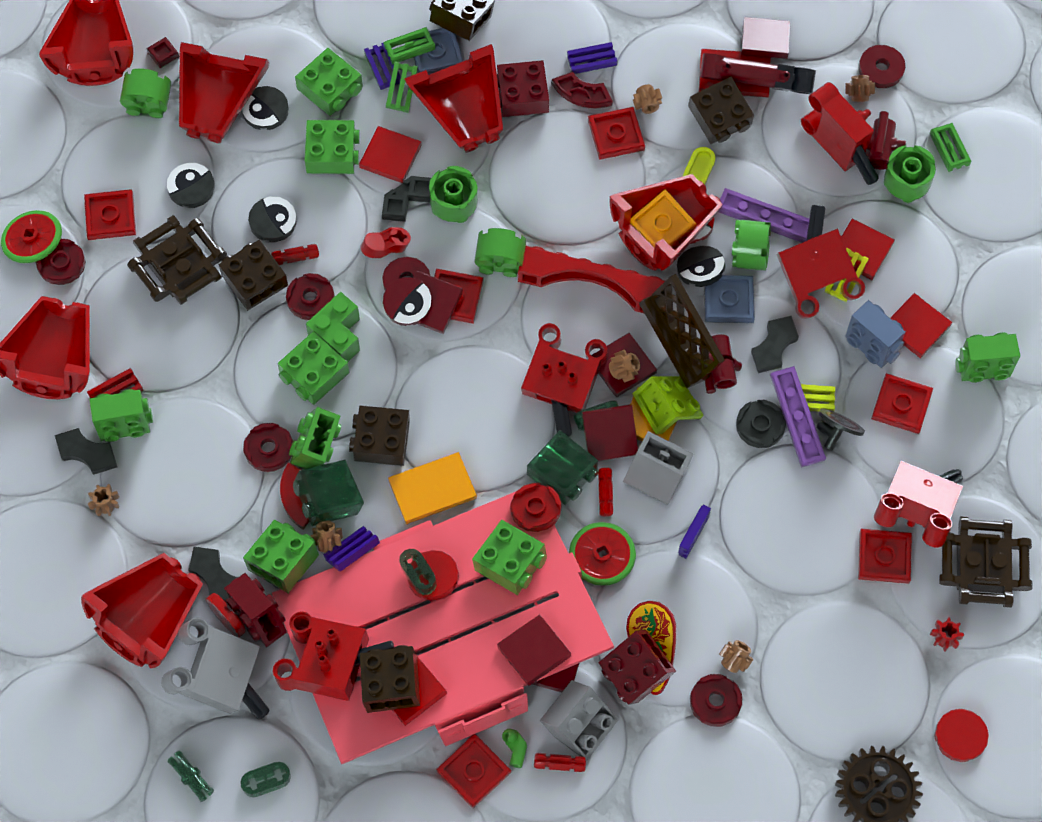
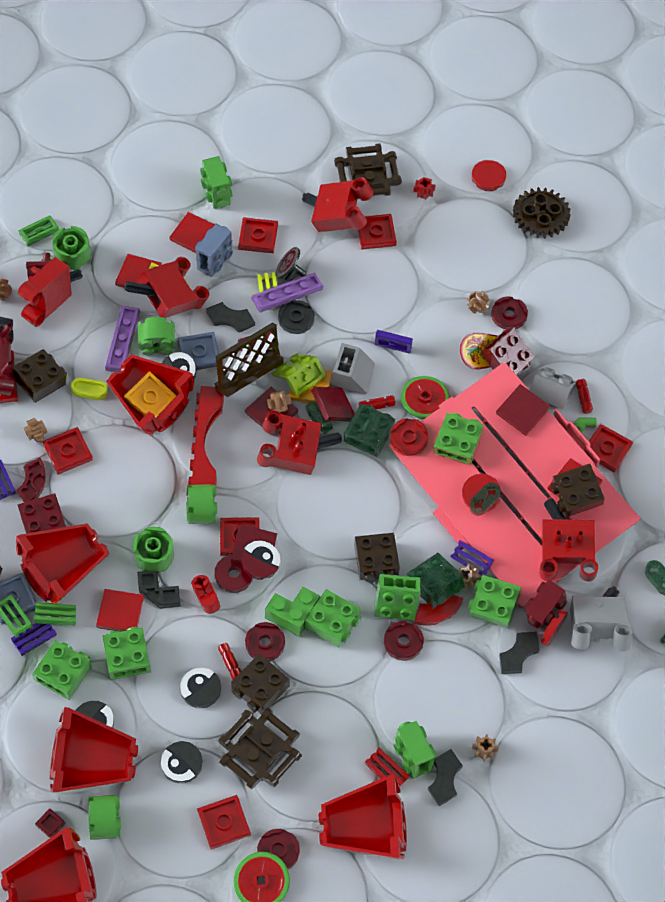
camera: 105 degrees left, 5 degrees down
(143, 609) = (568, 682): red cone -> none
(432, 488) = (405, 517): light orange tile -> none

